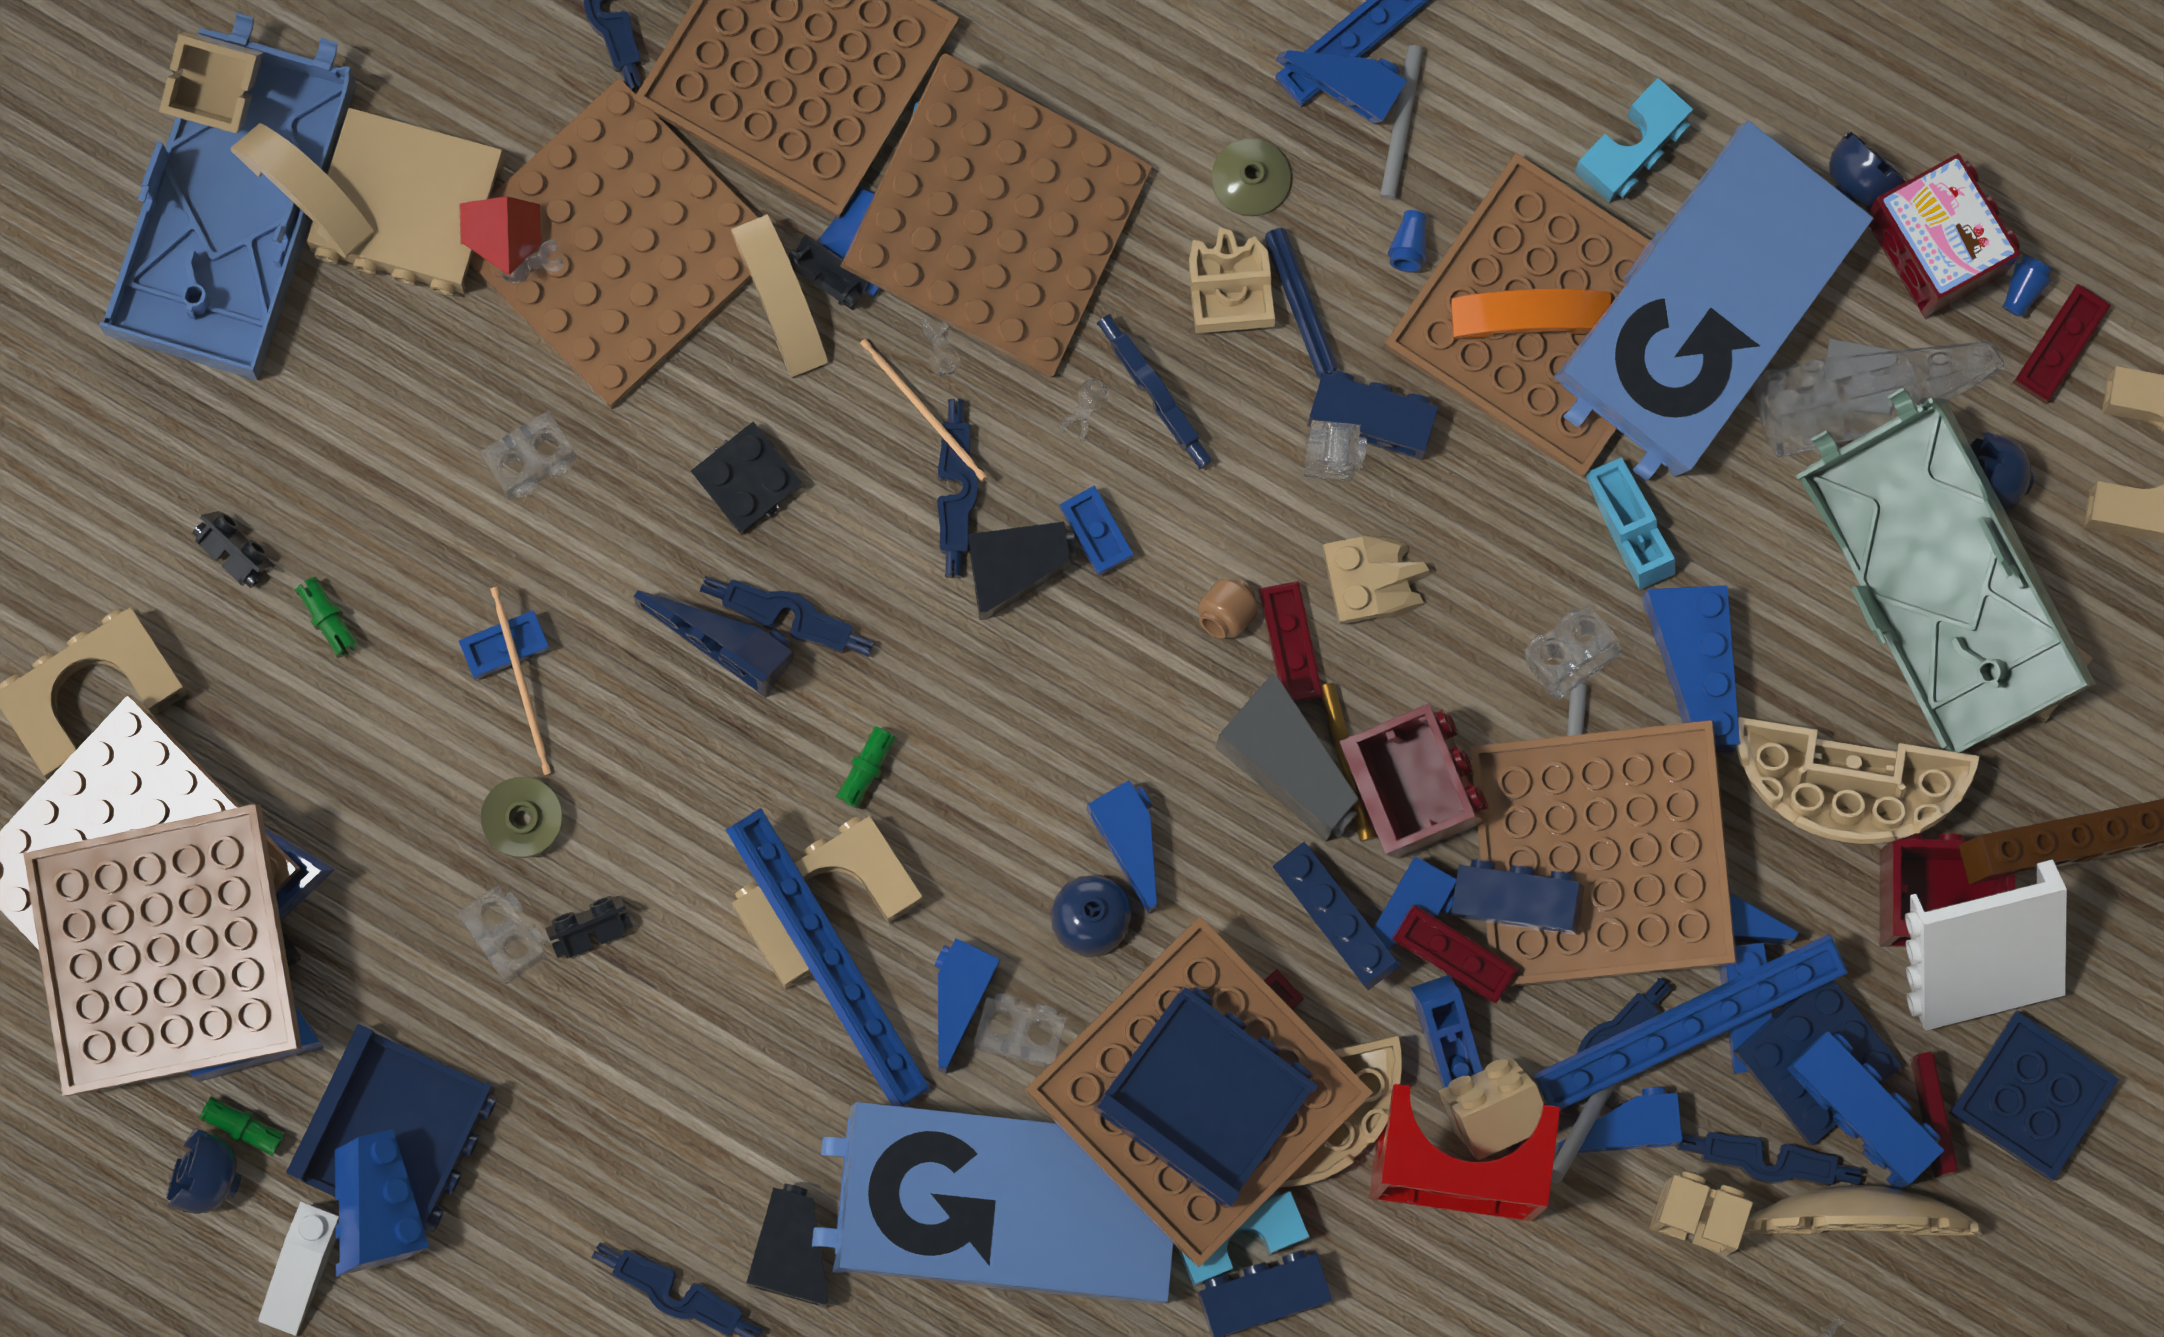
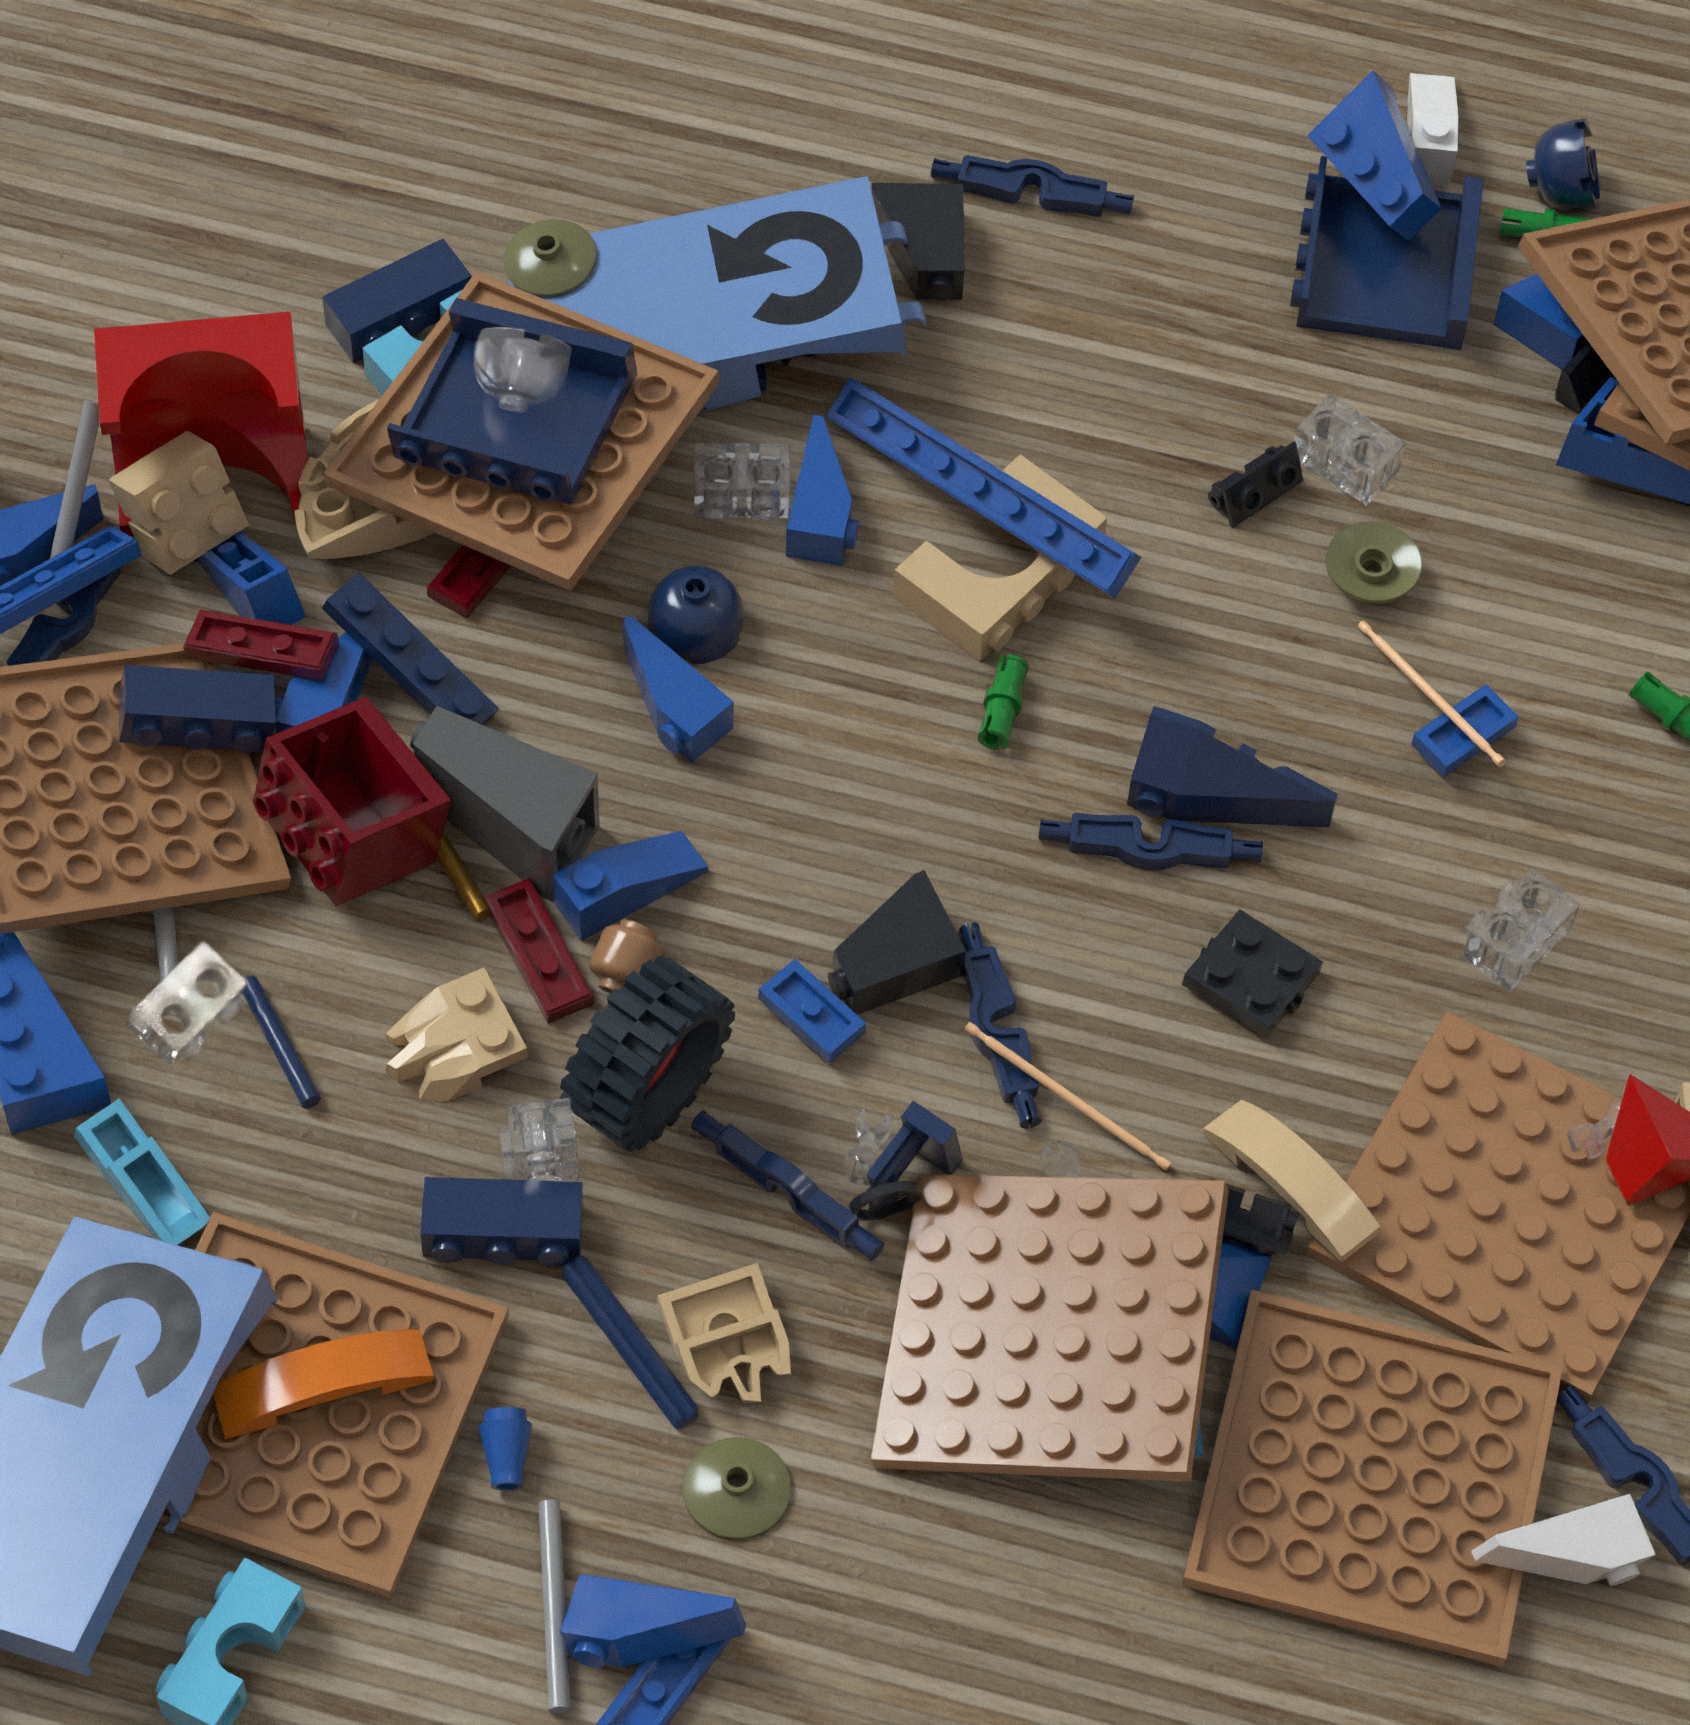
camera: 170 degrees right, 20 degrees down
(1044, 385) = (922, 1135): none -> dark blue piece
(1110, 1282) = (551, 271): none -> olive dish
(1194, 1114) = (519, 368): none -> clear cylinder
(1206, 681) = (623, 880): none -> blue slope
(1239, 487) = (647, 1053): none -> black wheel
(1506, 615) = (280, 1043): none -> dark blue bar

